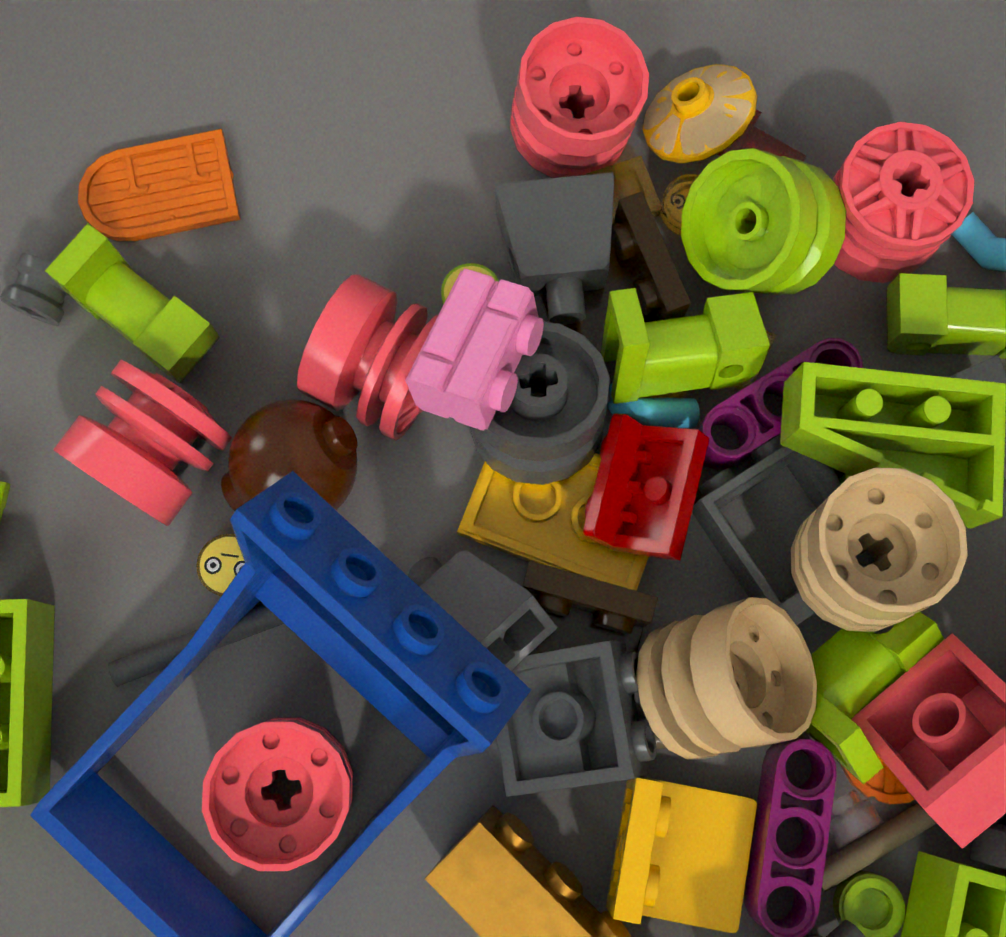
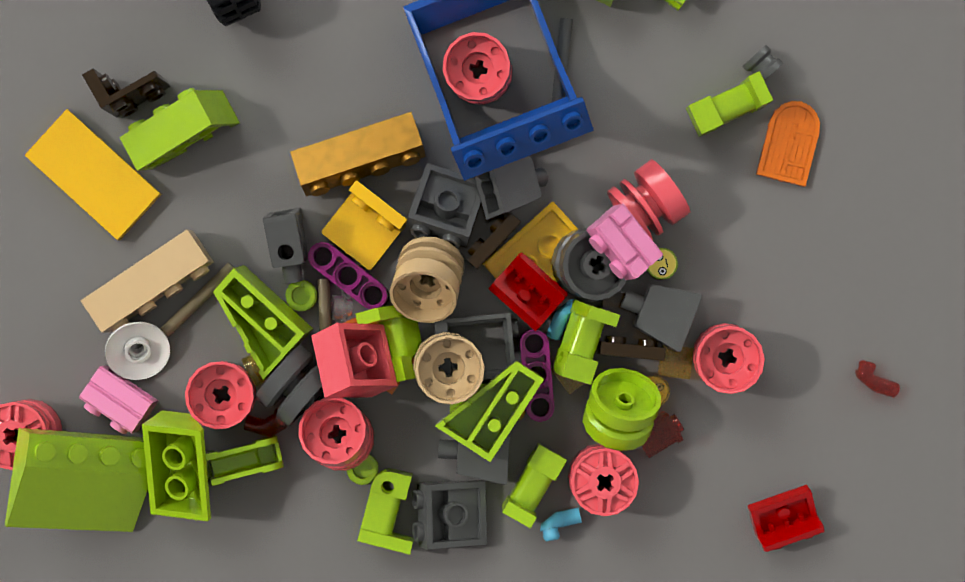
camera: 120 degrees right, 10 degrees up
(144, 441) = (660, 79): coral wheel -> none
(219, 563) = (591, 90): light yellow tile -> none
(289, 439) = (619, 140): reddish brown brick -> none
(700, 113) = (695, 416): dish -> none

